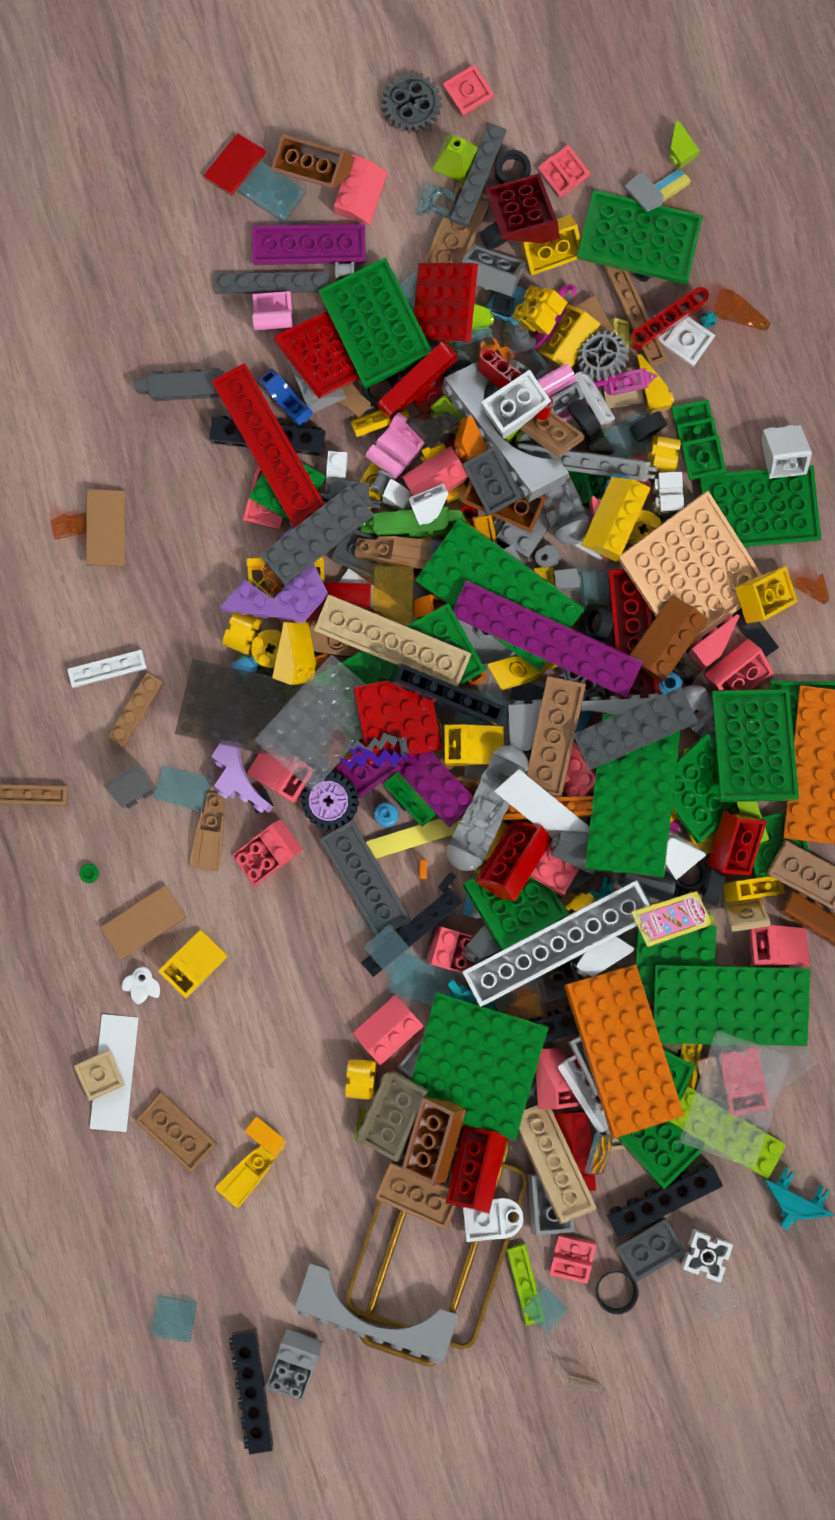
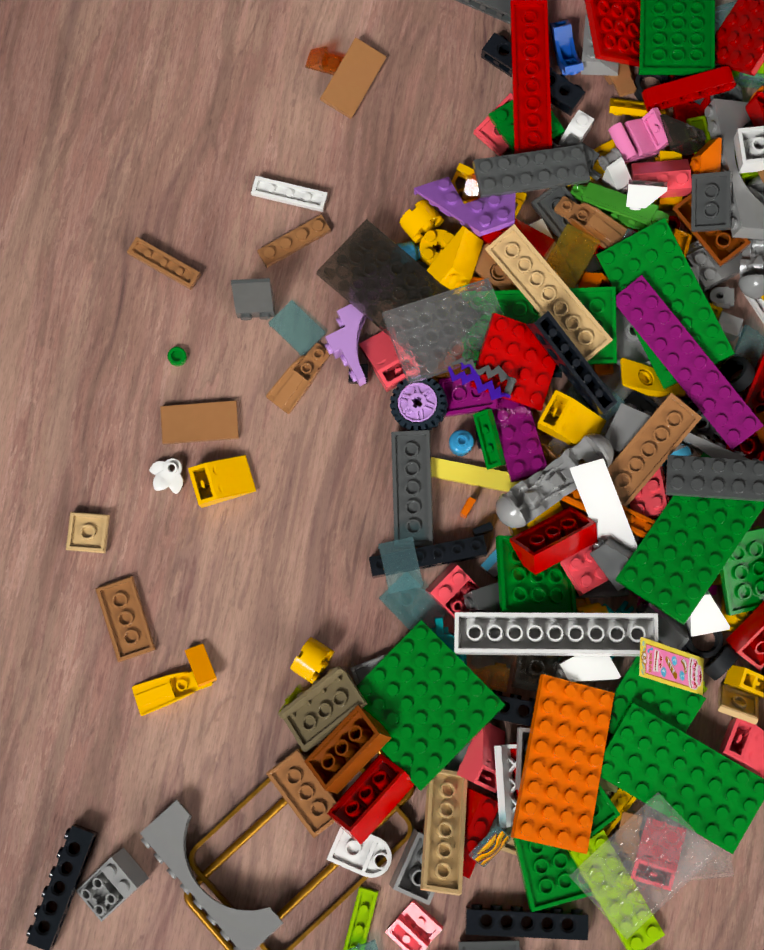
camera: 30 degrees right, 5 degrees down
(112, 1108) = (82, 568): white sticker -> none
(174, 1319) = (31, 783): clear light blue tile -> none
(267, 852) = (340, 420): coral slope -> none
(387, 1029) = (360, 630): coral slope -> none

